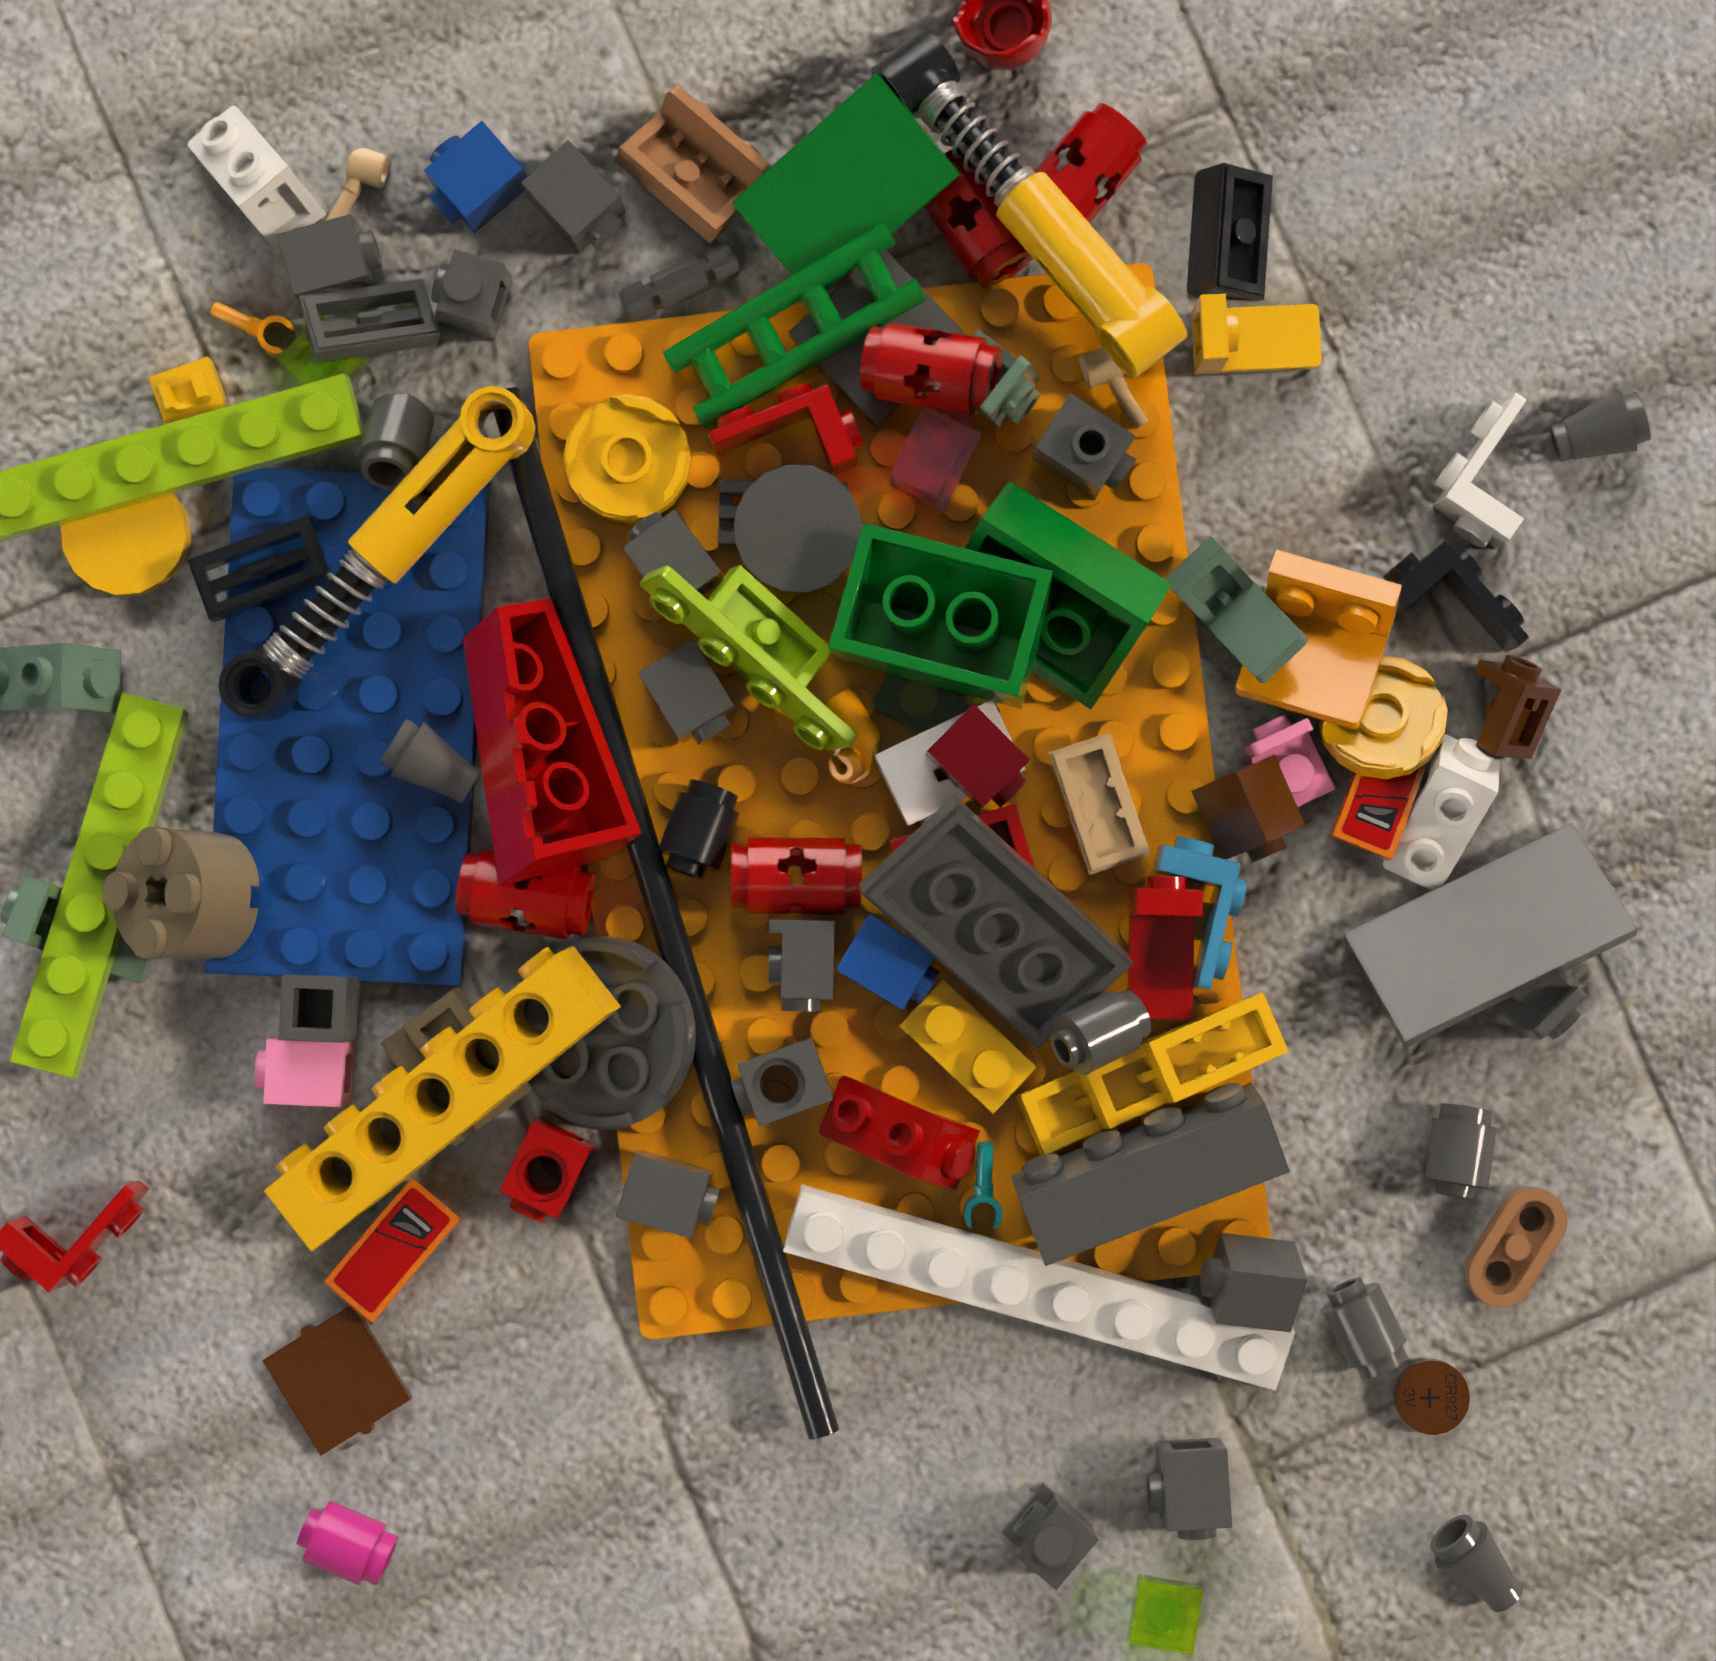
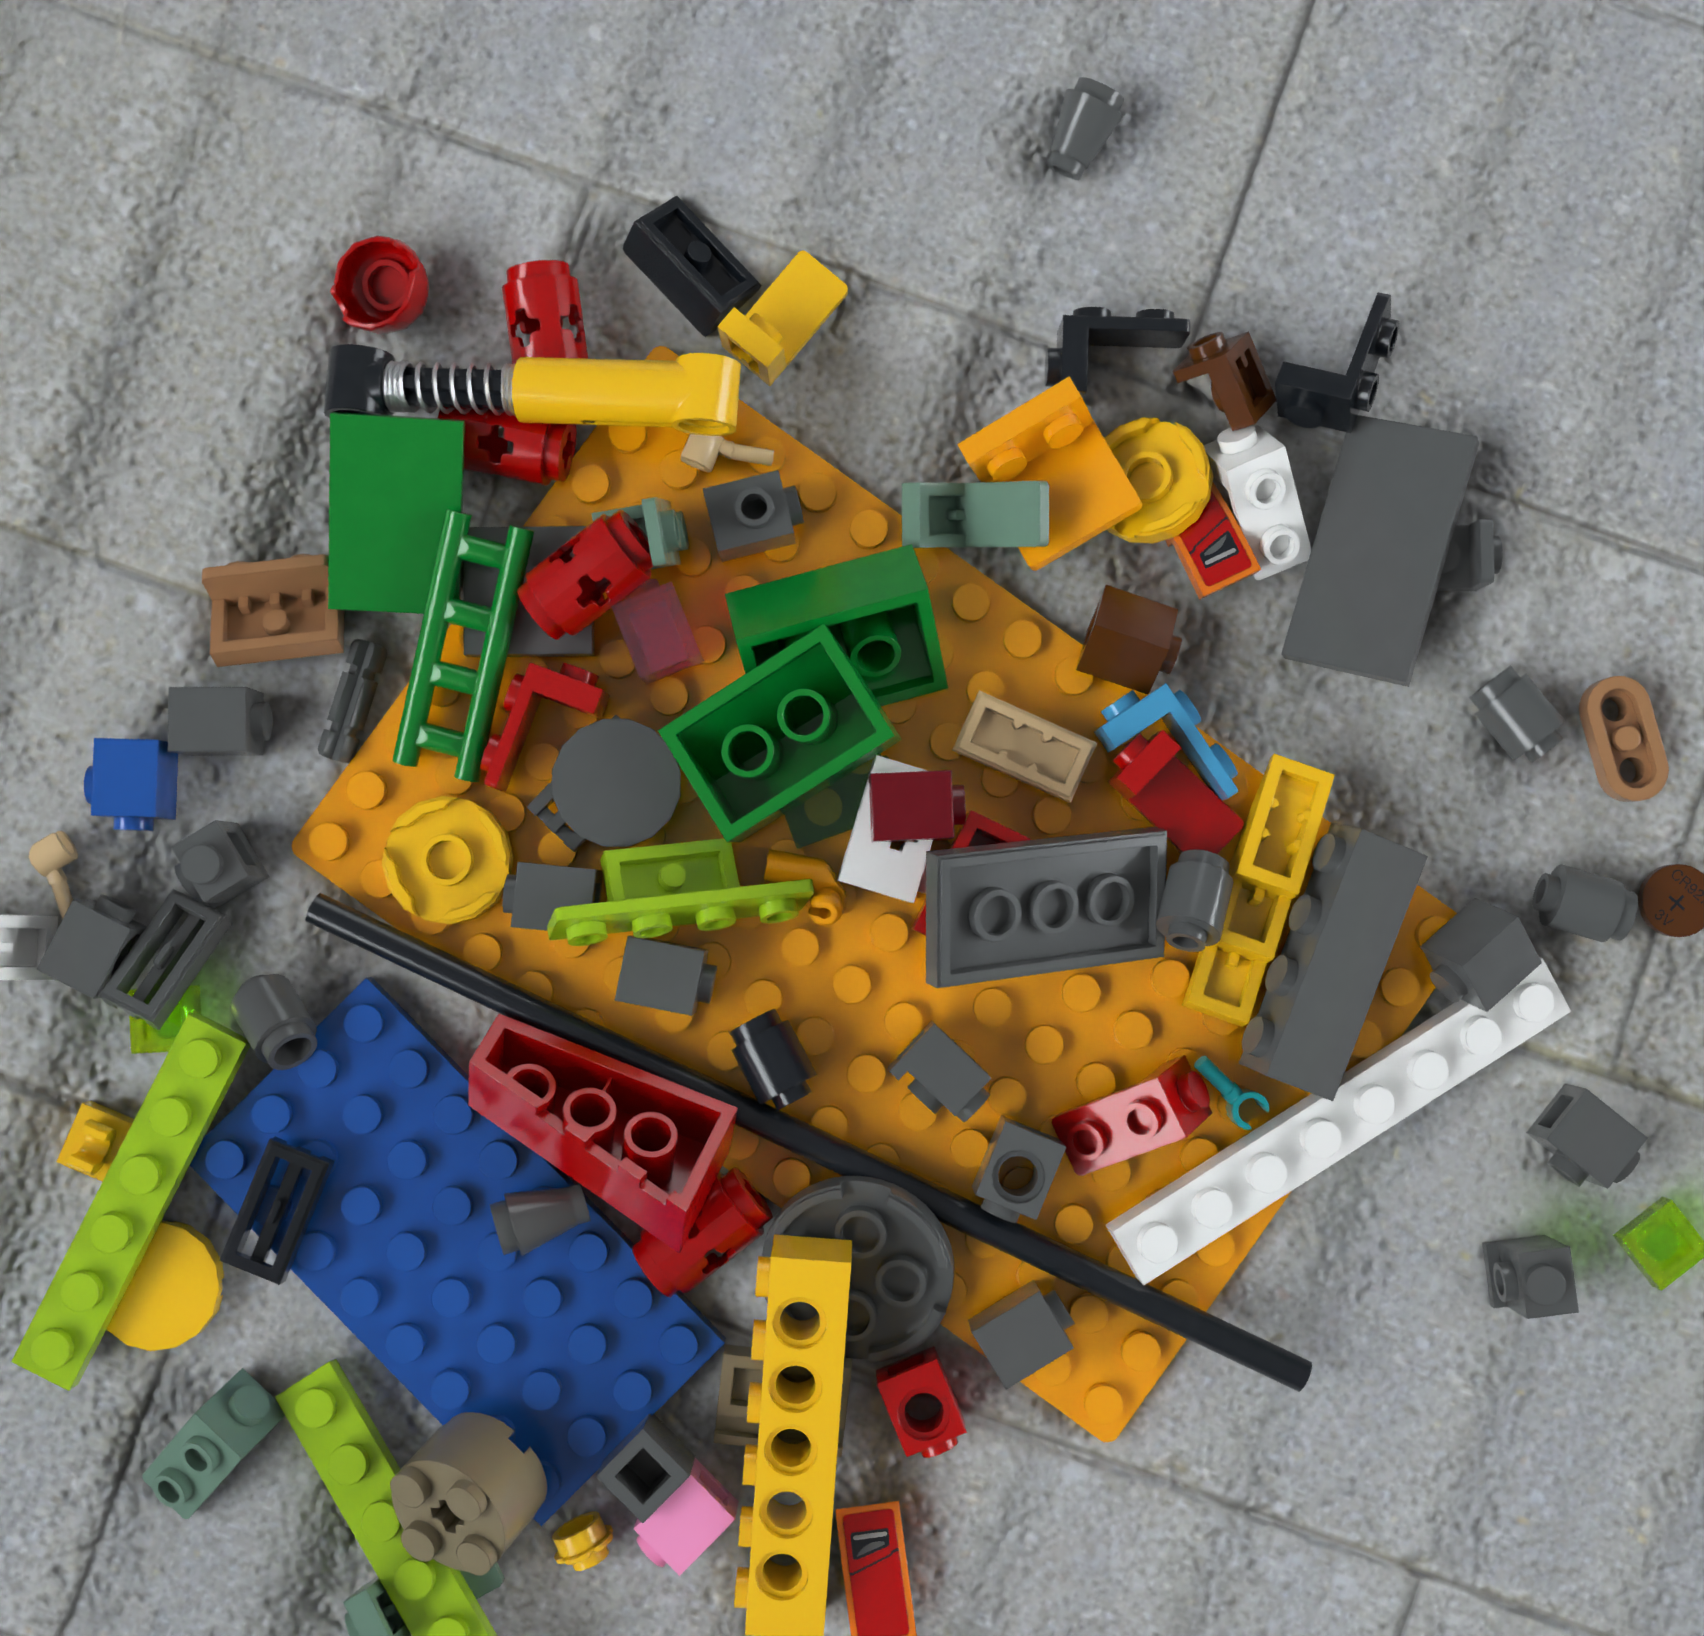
camera: 50 degrees left, 0 degrees up
(221, 1013) = (582, 1541): none -> yellow plate
(253, 325) = (90, 1047): light orange hand -> none
(383, 549) = (347, 1108): piece -> none
(827, 865) = (859, 1050): red piece -> none
(888, 963) = (1001, 1012): blue brick -> none
(967, 1046) = (1114, 1007): yellow plate -> none
(1295, 755) = (1119, 569): bright pink bracket -> none
(1478, 515) = (1063, 274): white bracket -> none
(1568, 800) = (1331, 399): none -> black bracket

